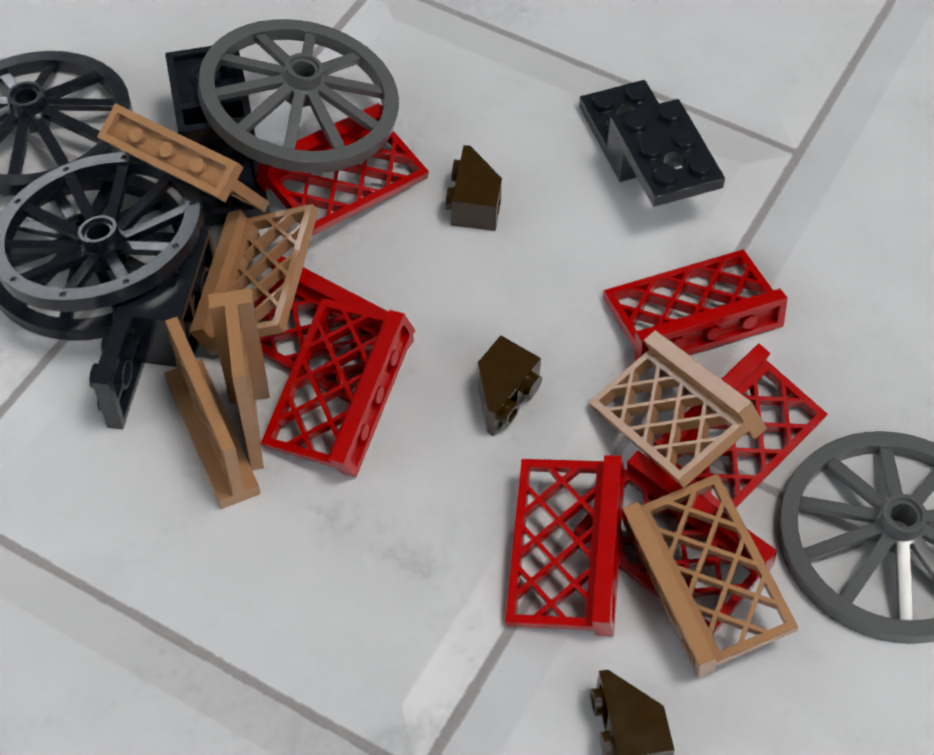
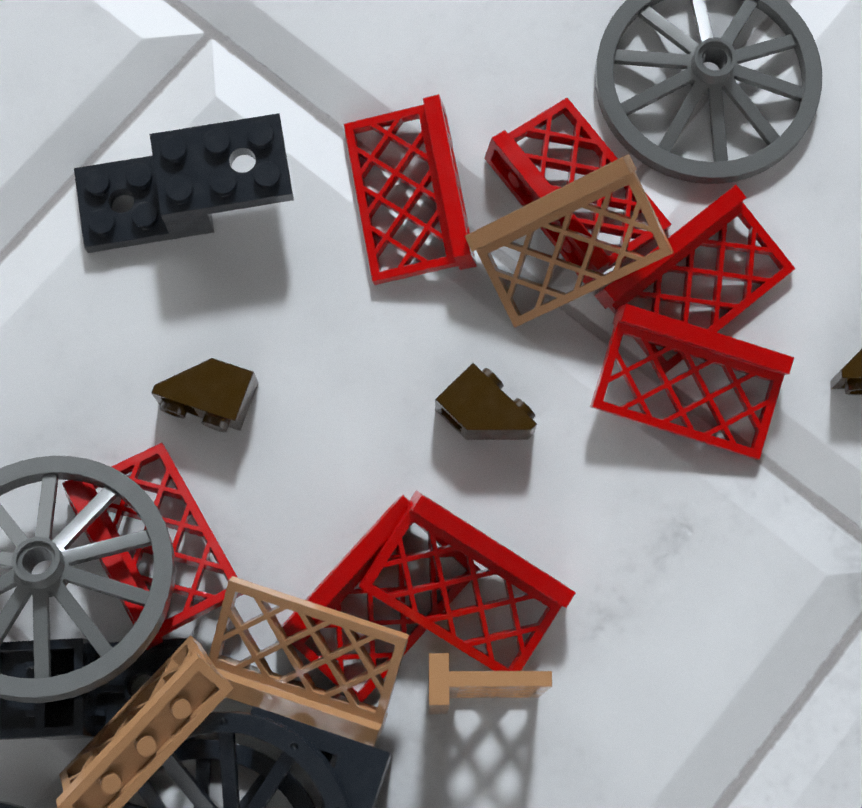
camera: 80 degrees left, 20 degrees up
(208, 423) = (489, 736): medium nougat fence -> none
(673, 590) = (765, 288): medium nougat fence -> none

